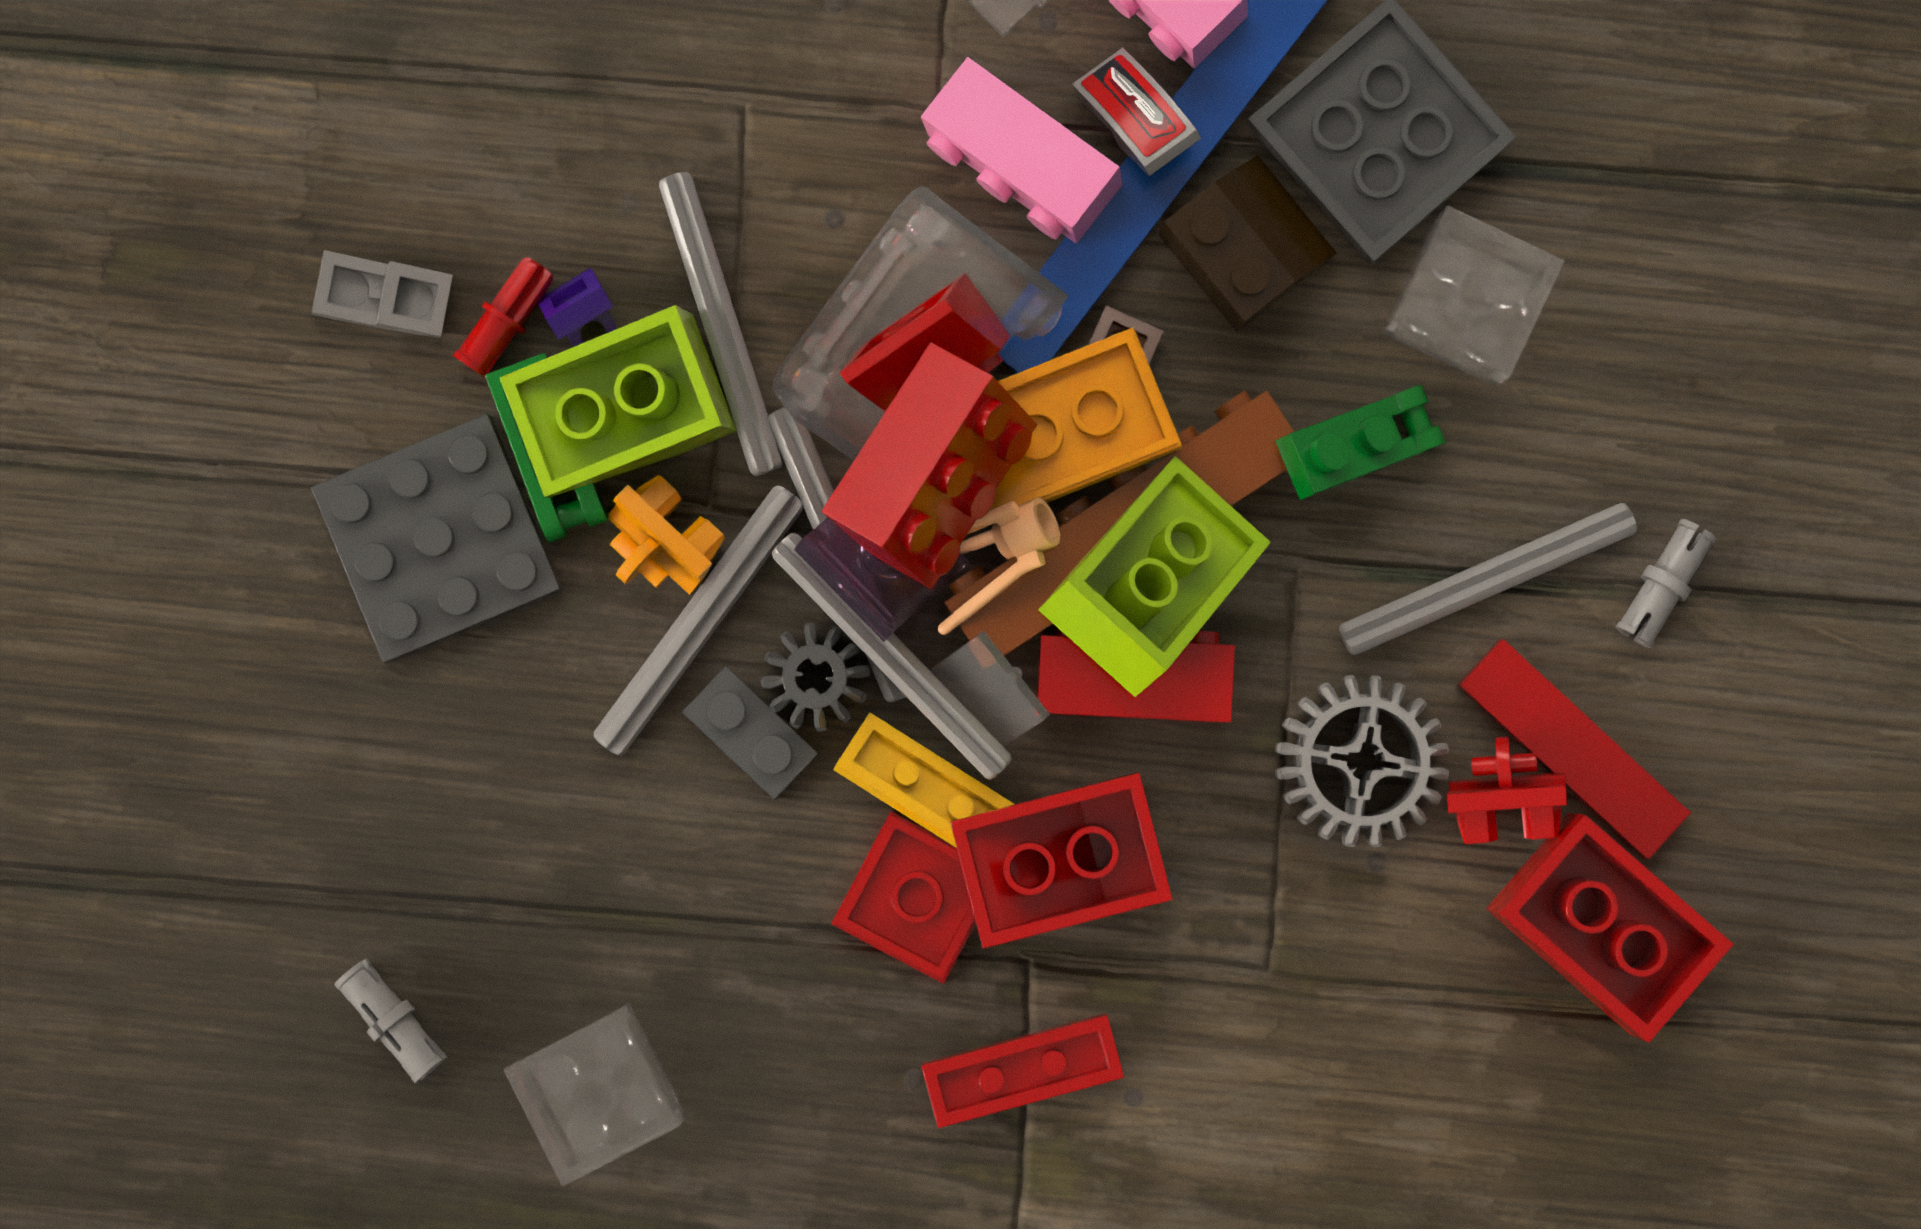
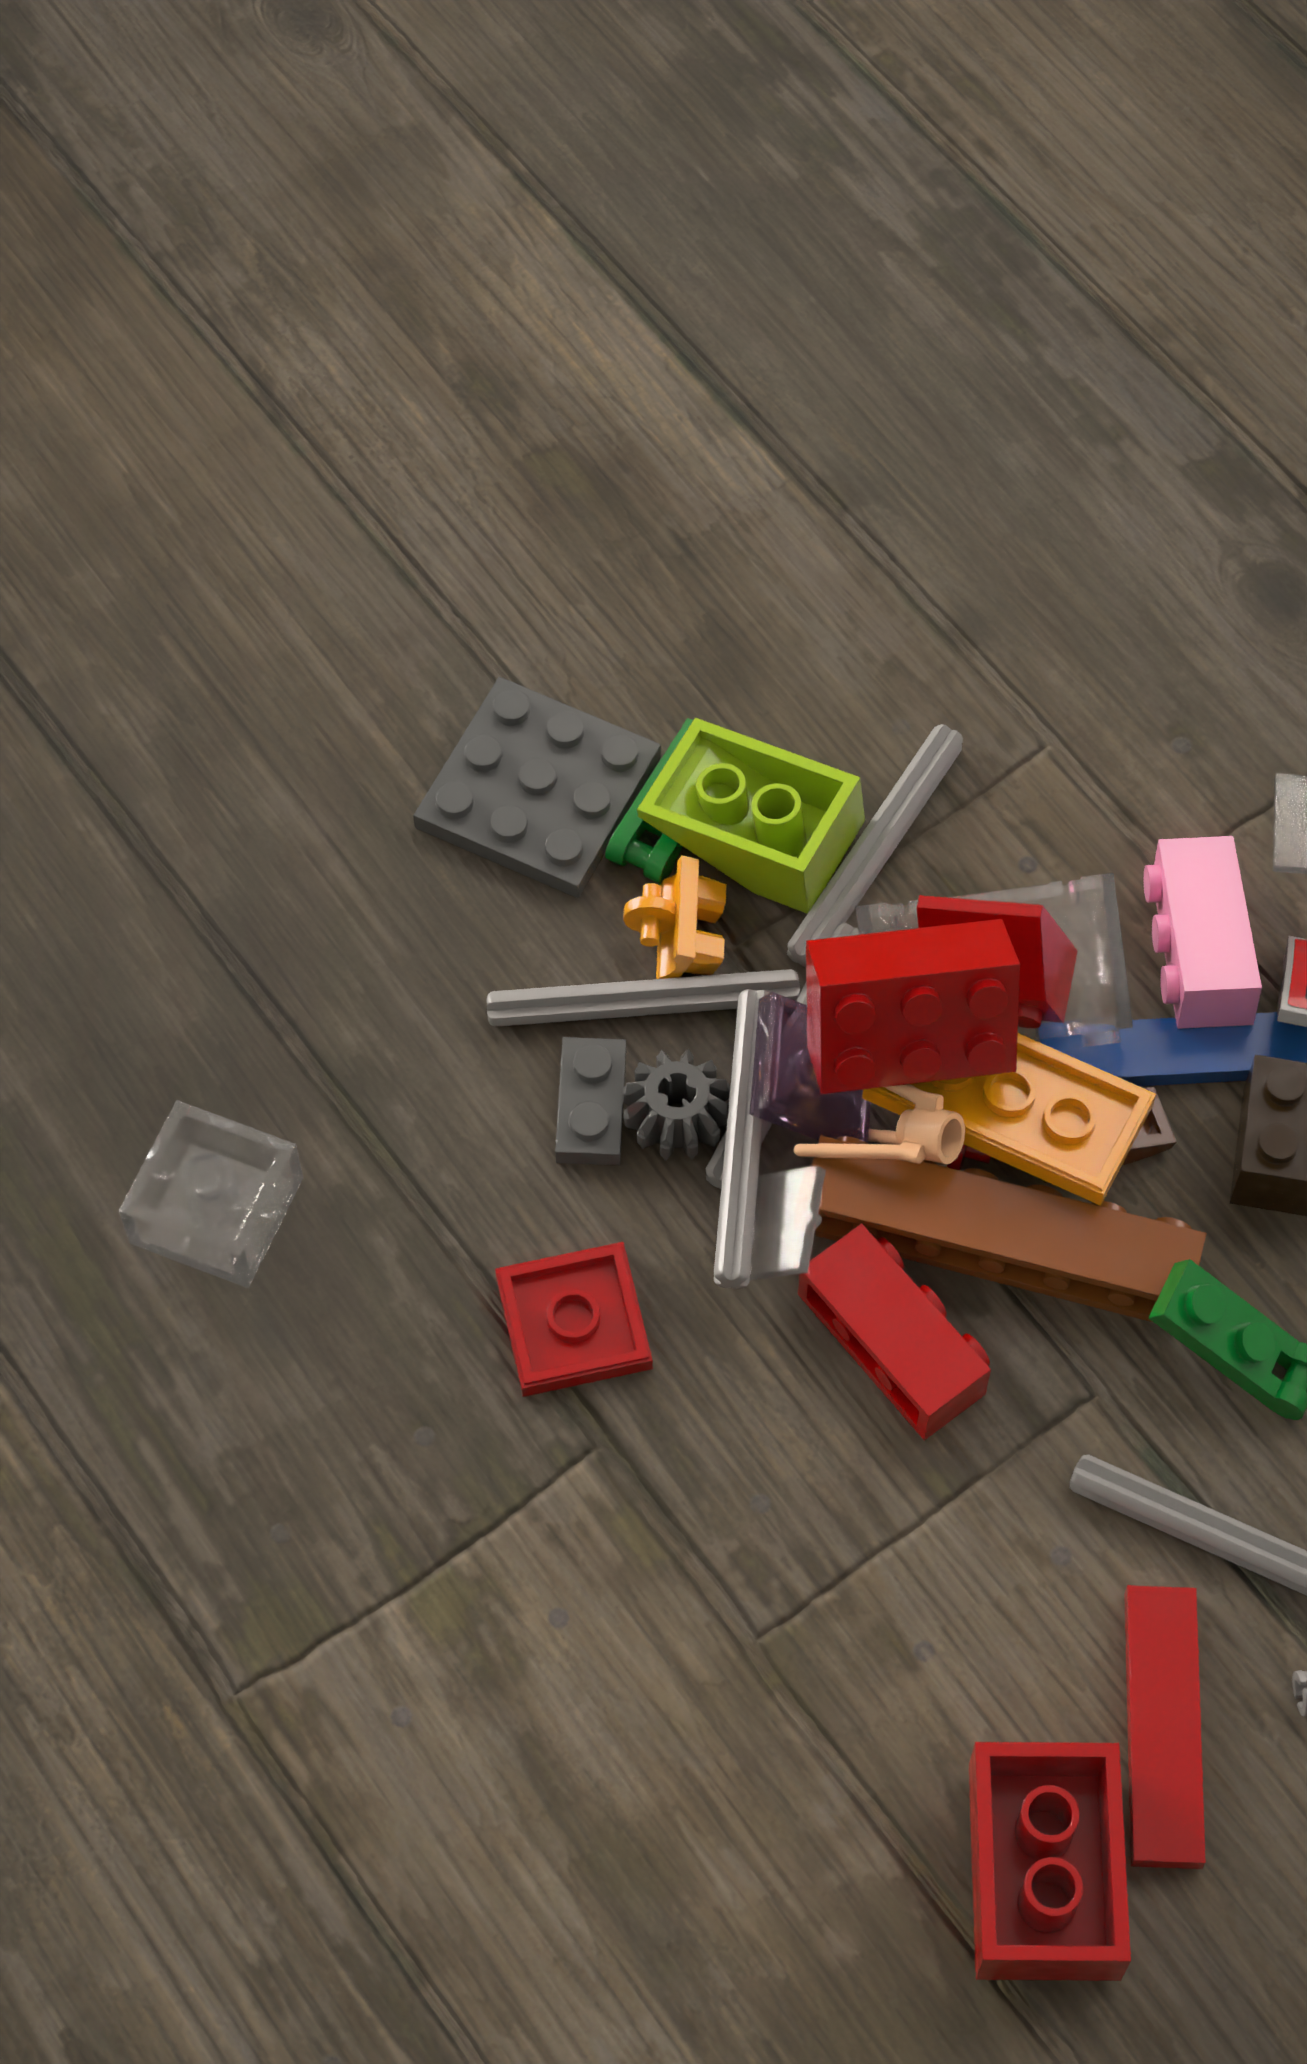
camera: 50 degrees right, 25 degrees down
(381, 294) = (678, 620): light grey slope -> none
(390, 1020) = (143, 1023): light grey pin -> none
(504, 316) = (740, 704): red axle -> none
(576, 304) = (795, 737): dark purple tile -> none
(914, 778) = (666, 1258): yellow plate -> none
(1022, 1070) = (505, 1502): red plate -> none
(1061, 860) = (705, 1382): red slope -> none
(1155, 577) = (984, 1253): lime slope -> none
(1354, 789) = (1035, 1523): light grey gear -> none
(1478, 799) = (1048, 1673): red hips -> none

